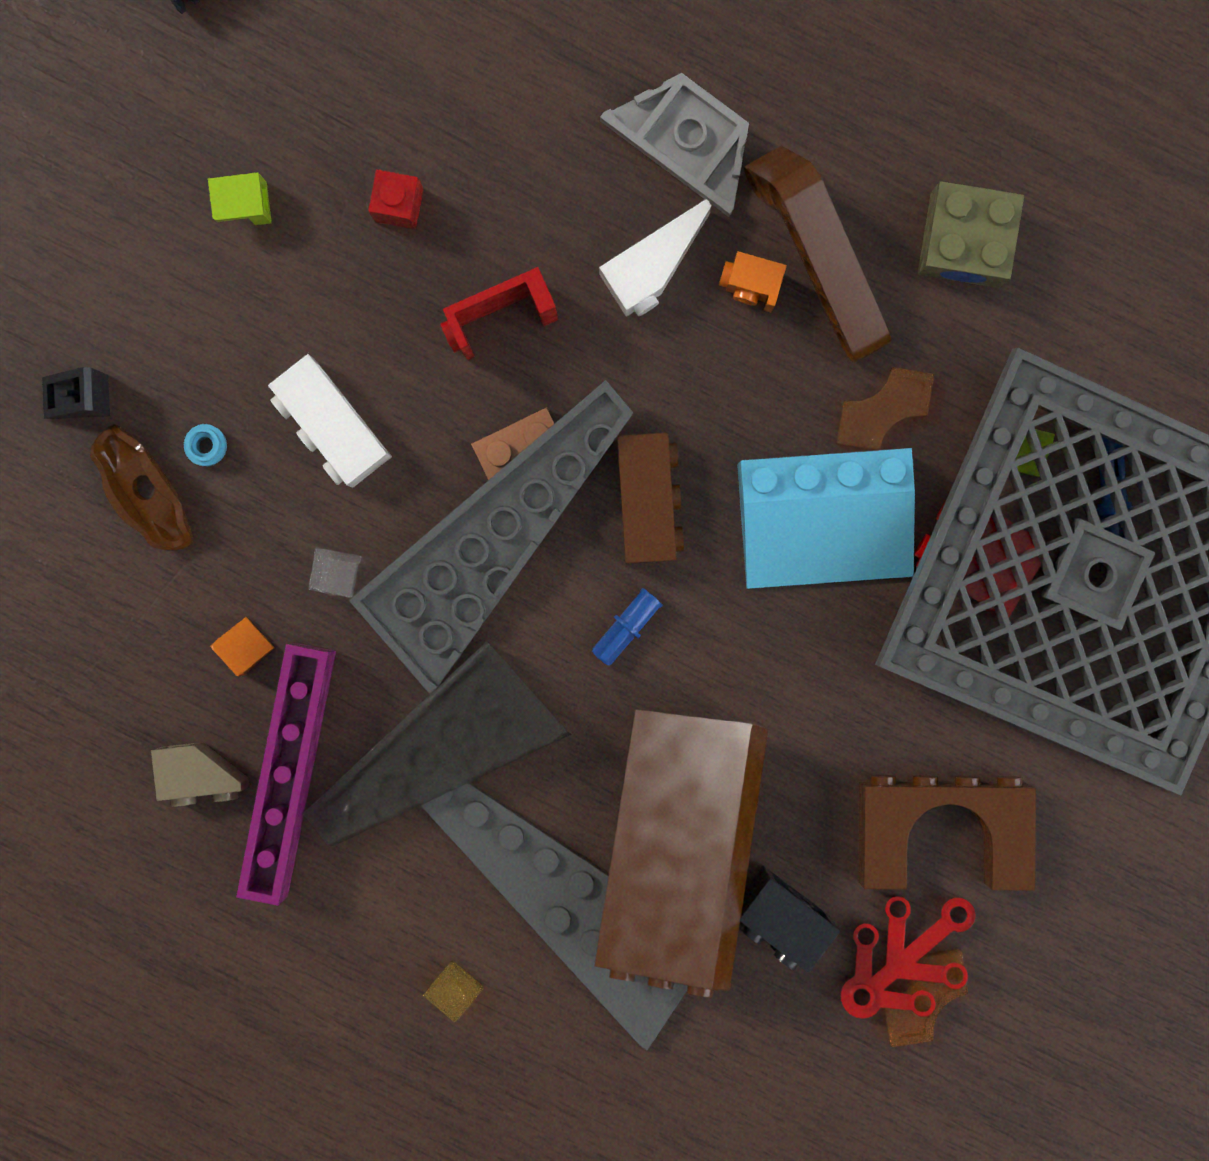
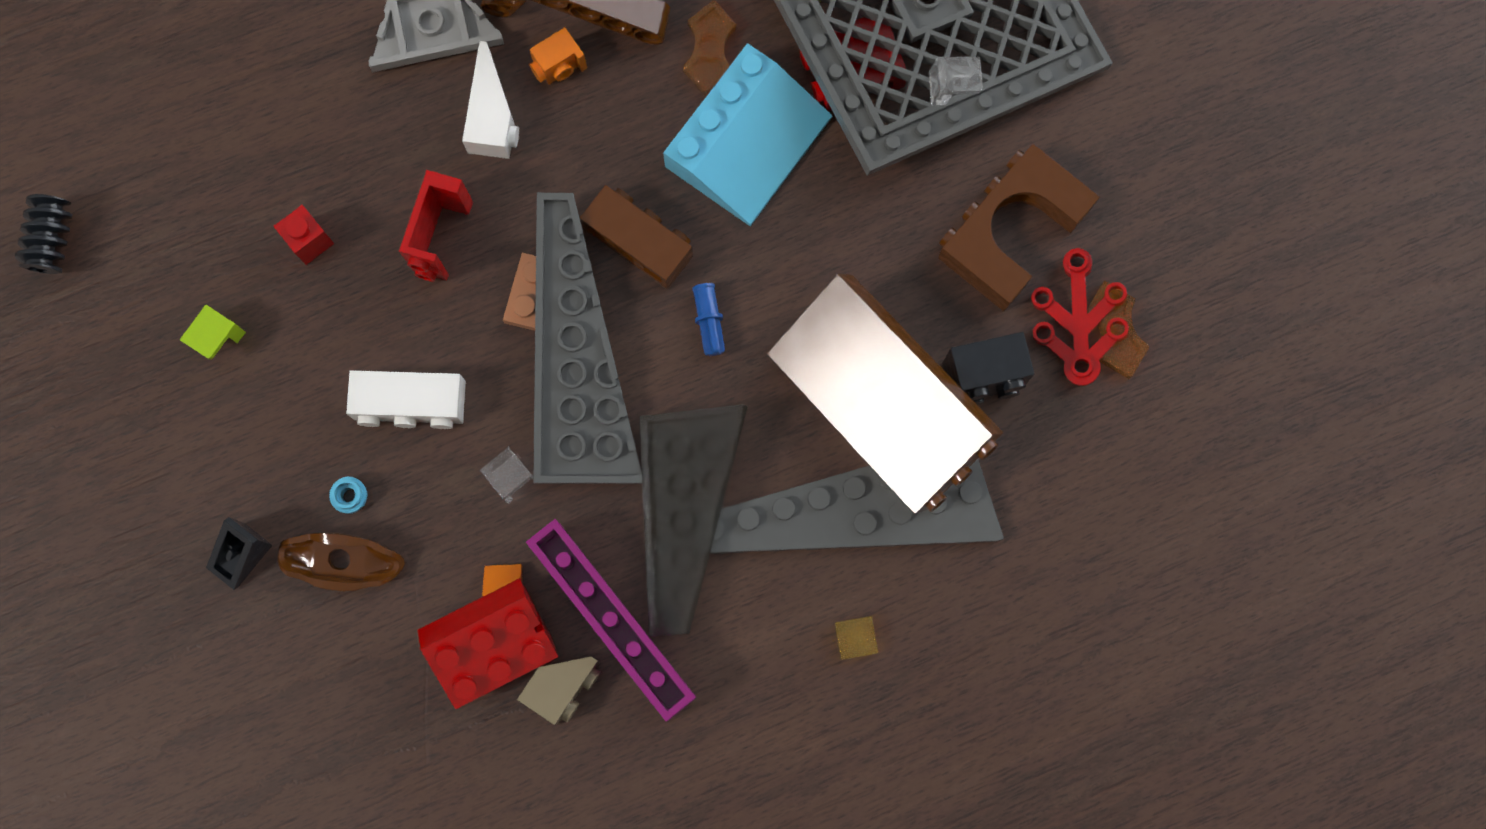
camera: 50 degrees left, 10 degrees down
(175, 684) = (487, 643): none -> red piece
(1033, 673) = (954, 76): none -> clear panel

